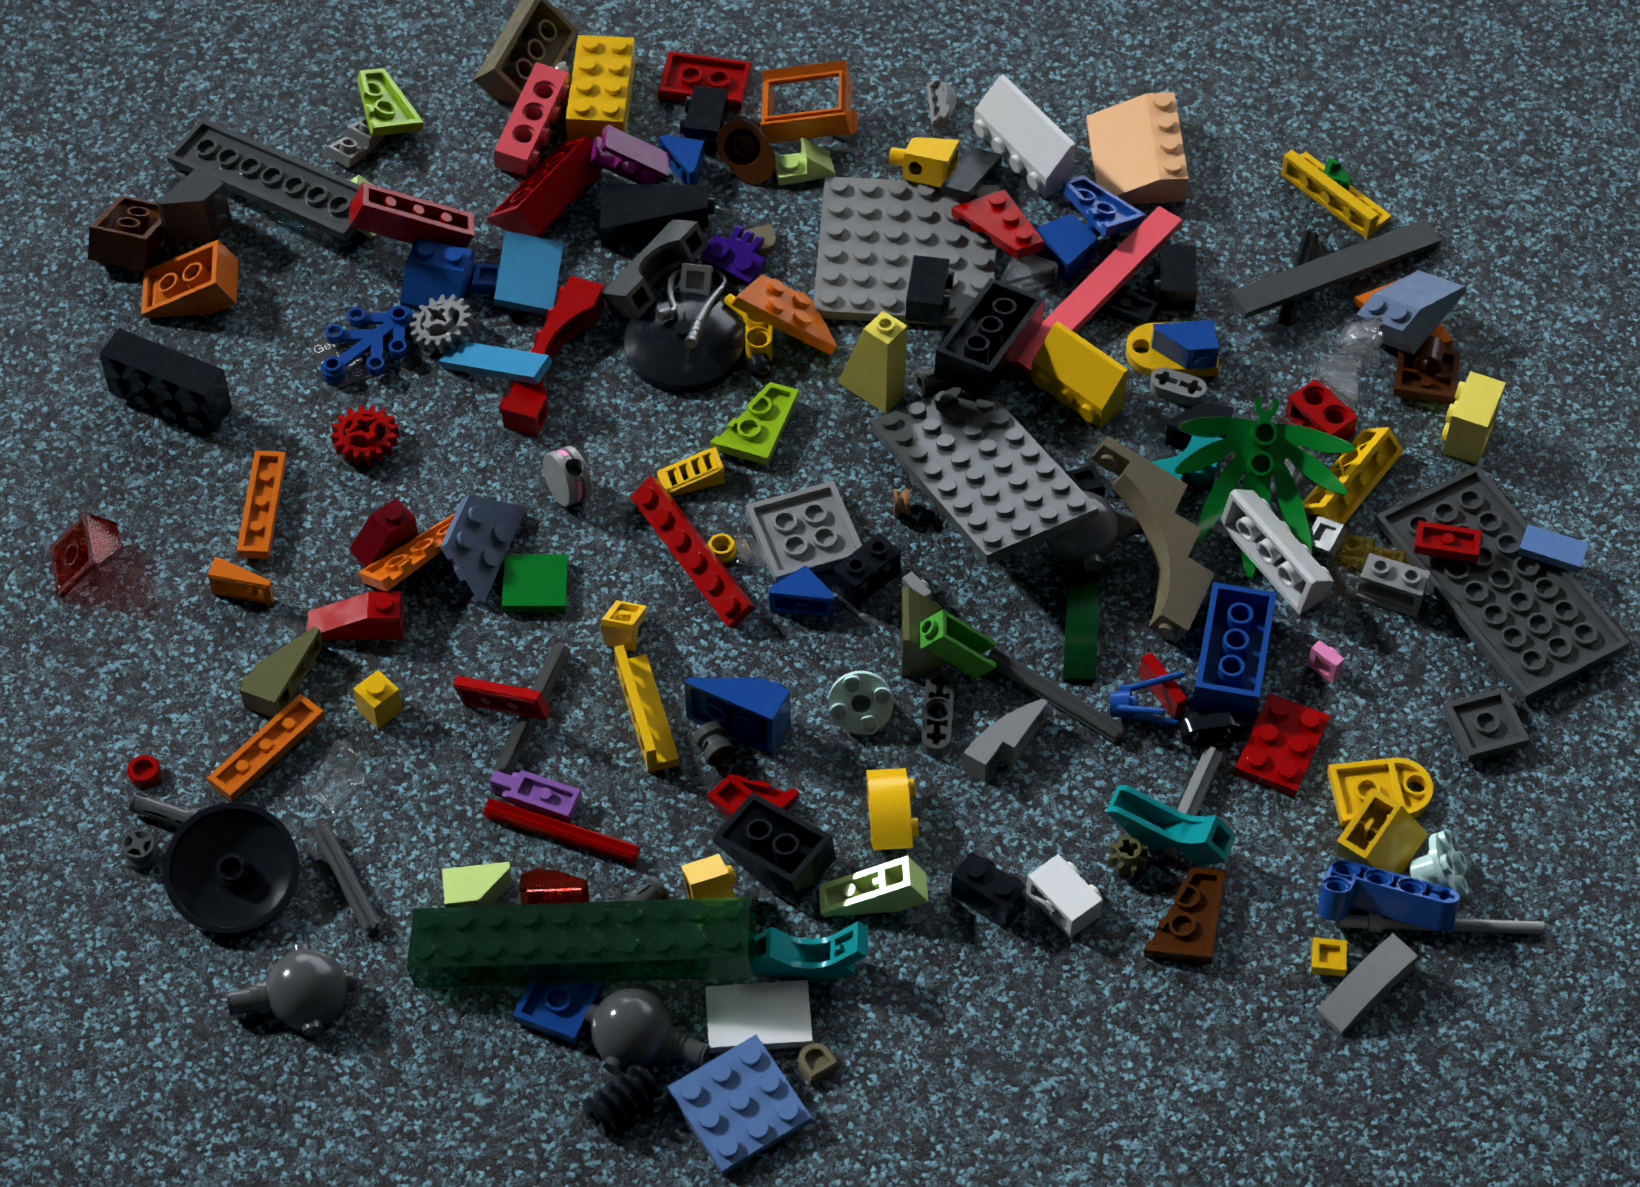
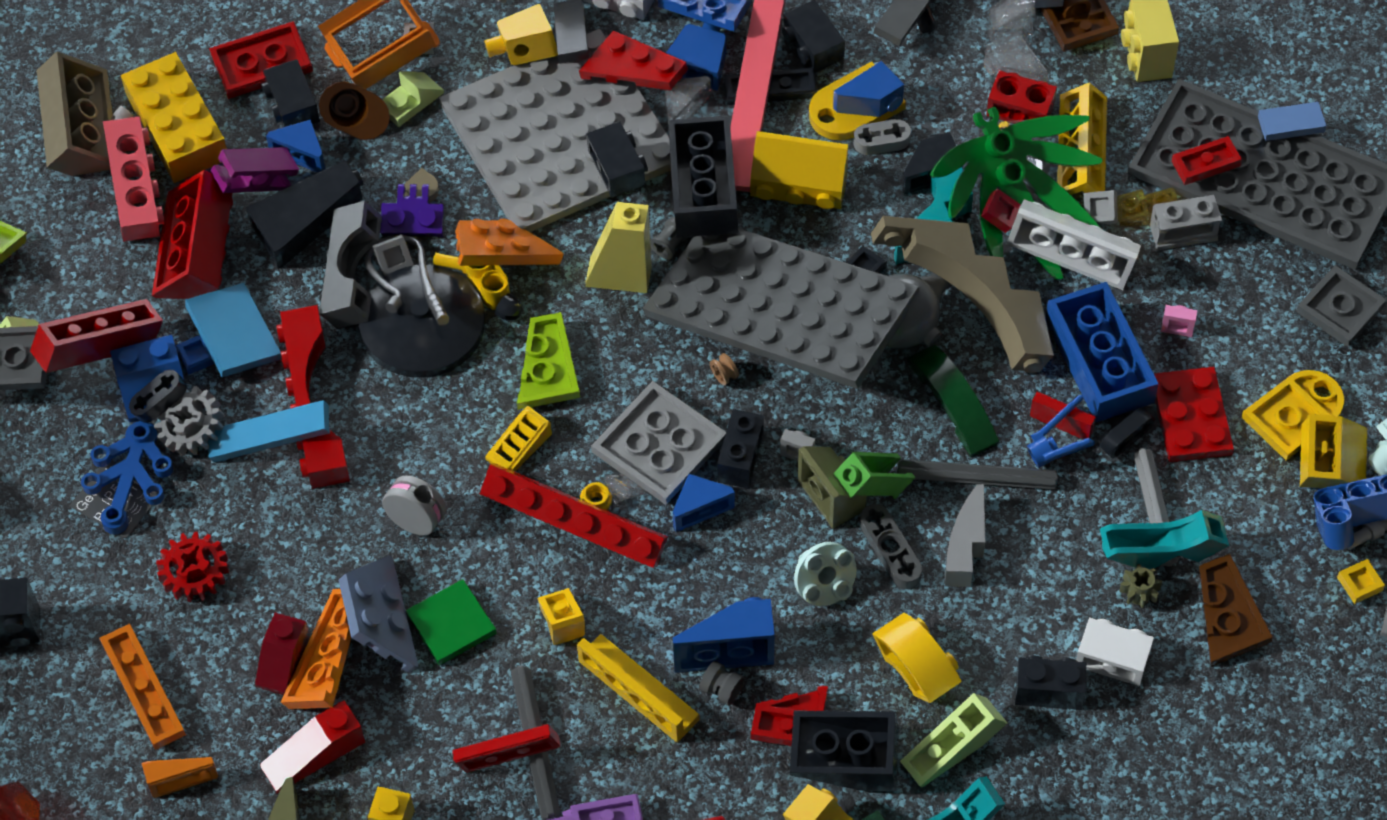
camera: 30 degrees left, 5 degrees up
(429, 291) = (157, 396): none -> black beam
(1221, 489) = (1001, 210): none -> dark red plate

